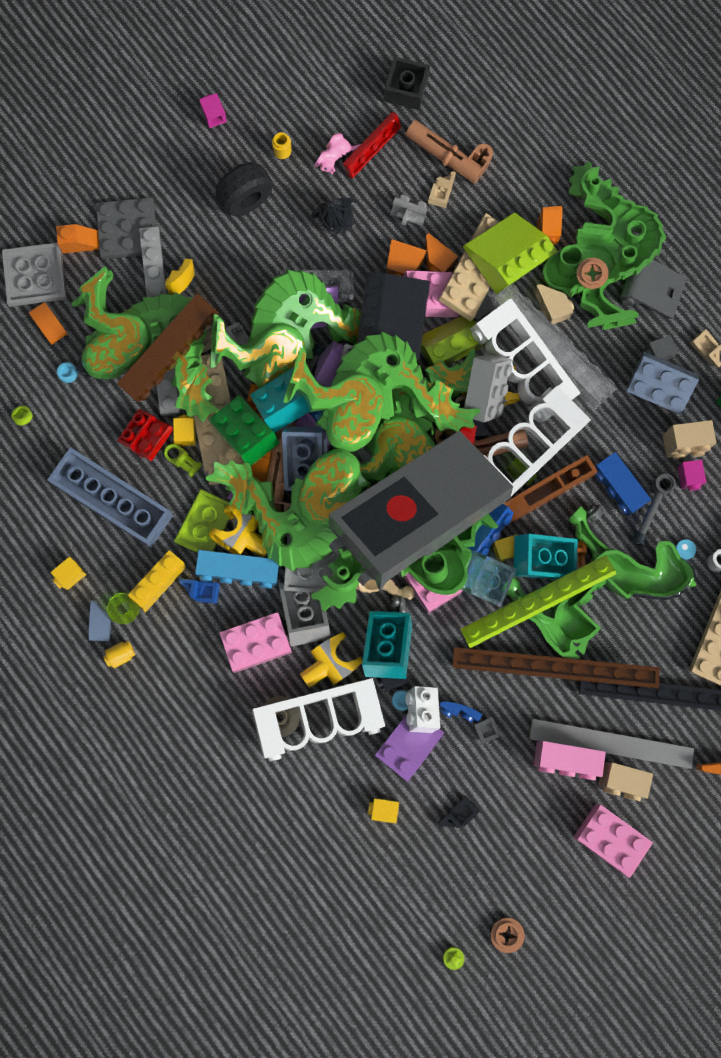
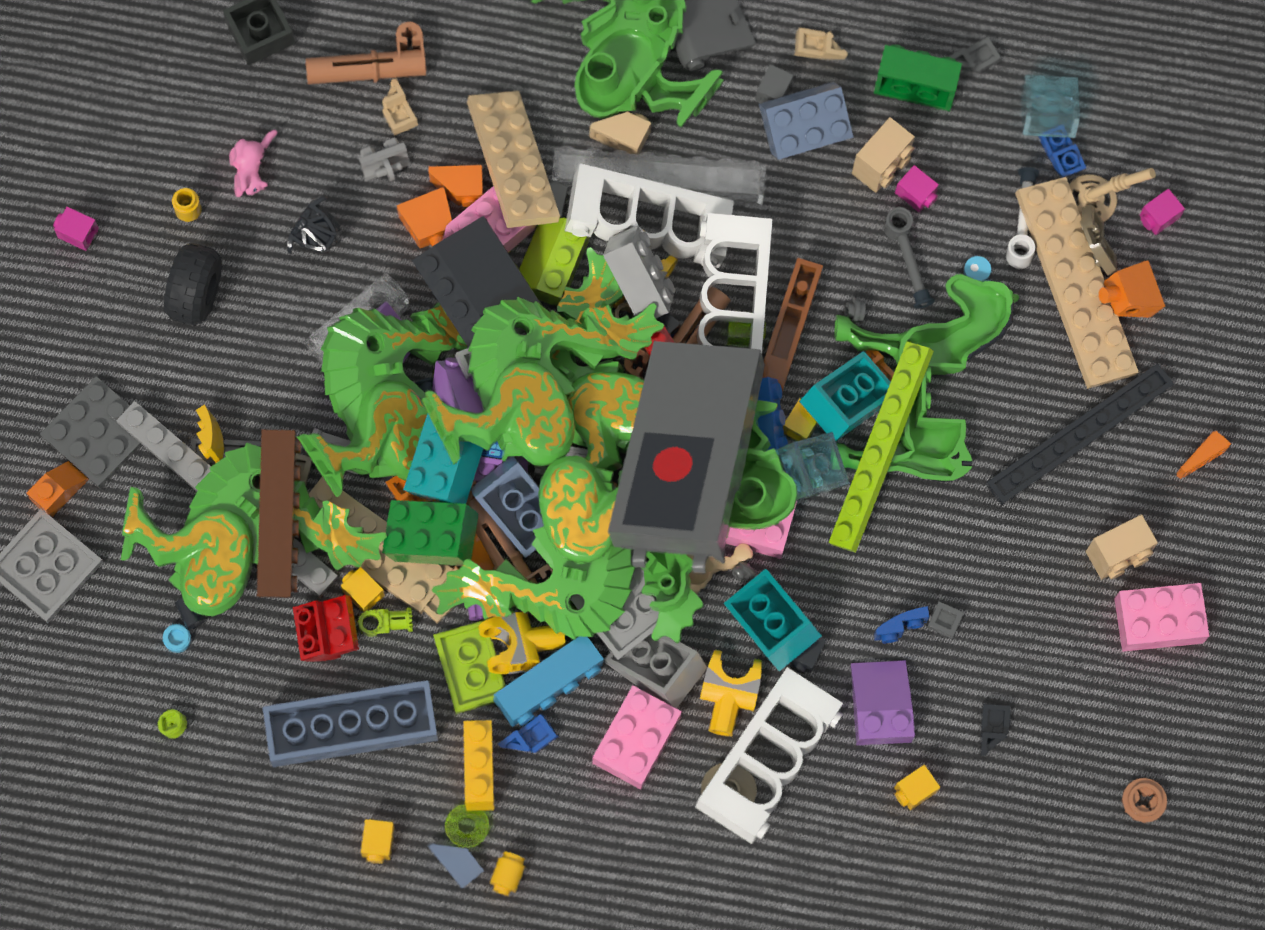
camera: 40 degrees left, 5 degrees down
(48, 323) = (108, 604): orange slope -> none
(372, 145) = (281, 123): red tile -> none
(398, 700) = (834, 666): medium azure tile -> none
(423, 709) = (865, 654): white brick -> none
(453, 958) = (1113, 869): lime tile -> none
(509, 251) = (532, 116): lime slope -> none
(551, 223) = (547, 54): orange slope -> none
(556, 667) = (956, 498): reddish brown plate -> none
(569, 760) = (1050, 576): bright pink brick -> none
(598, 267) = (639, 56): nougat gear -> none
(612, 743) = (1076, 526): light grey tile -> none
(621, 484) = (857, 259): blue brick -> none

